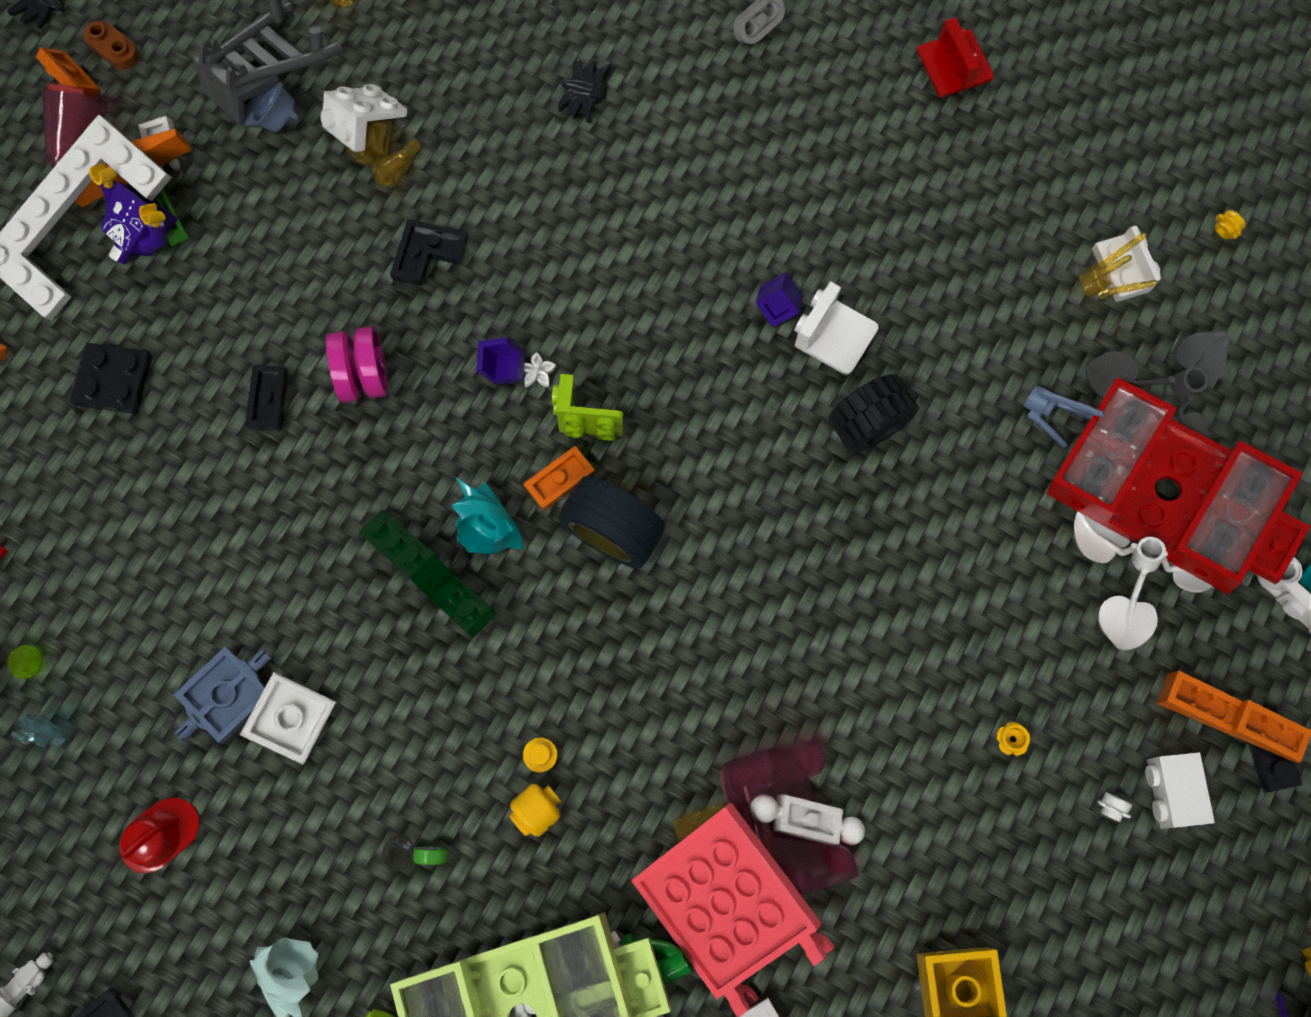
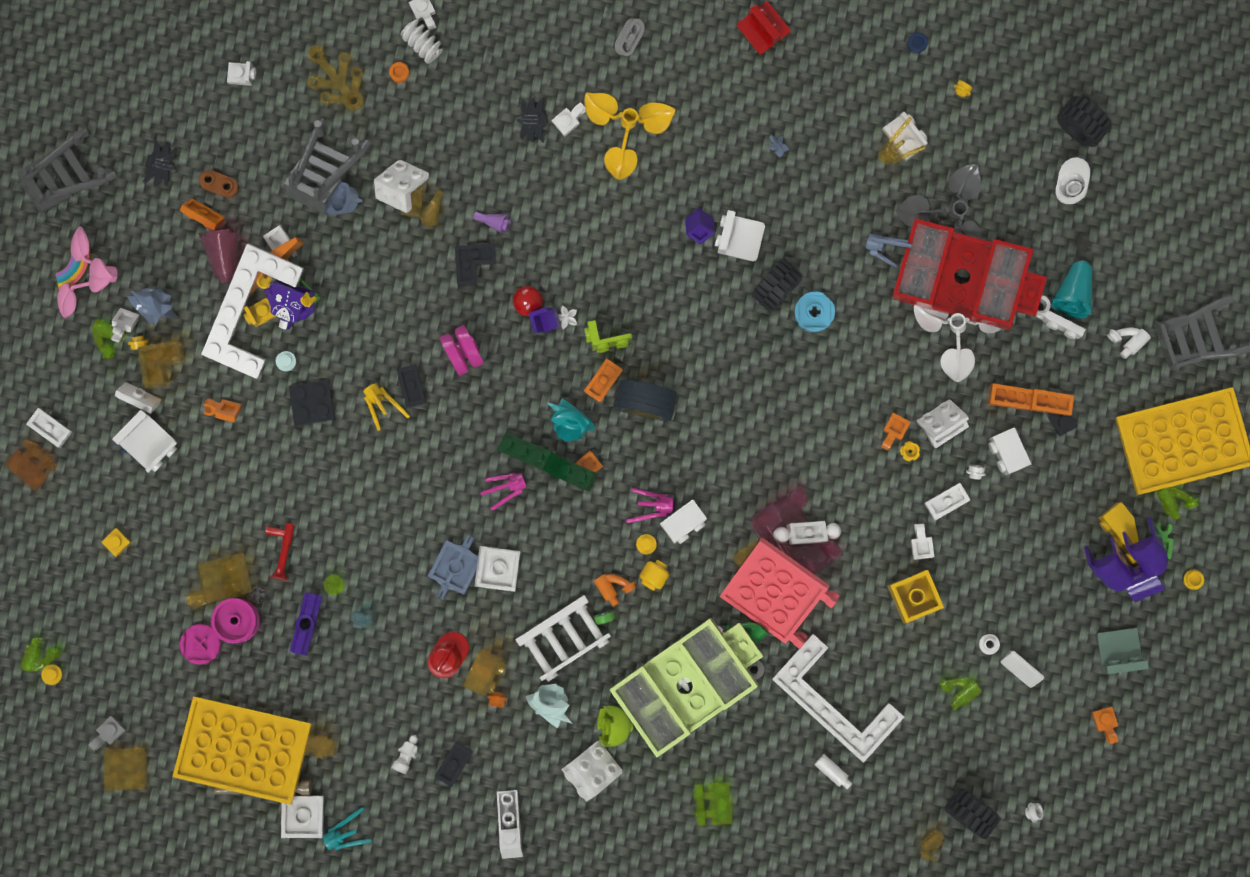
camera: 15 degrees left, 10 degrees up
(85, 230) = (258, 313): none -> yellow bracket
(98, 307) = (286, 361): none -> light aqua plate
(196, 884) = (484, 672): none -> clear yellow brick
(205, 937) = (497, 699): none -> orange plate
(206, 395) = (374, 395): none -> yellow plant
(327, 843) = (546, 630): none -> white fence
(366, 590) = (514, 482): none -> dark pink plant
(451, 809) = (607, 590): none -> orange plant
(484, 207) = (497, 221): none -> medium lavender cone
(485, 324) = (527, 300): none -> red hair
(495, 595) = (590, 462): none -> orange plate
(587, 699) = (663, 505): none -> dark pink plant
(611, 738) = (683, 522): none -> white brick
(634, 104) = (567, 120): none -> white plate
(689, 100) = (602, 107): none -> yellow plant
(930, 223) = (778, 145): none -> sand blue plant
(934, 467) = (822, 304): none -> medium azure plate
(993, 904) = (921, 546): none -> white plate
(999, 694) = (894, 428): none -> orange plate
(1054, 841) = (947, 501): none -> white plate
(1081, 710) = (943, 423): none -> white bracket
(1175, 146) = (917, 43): none -> dark blue tile

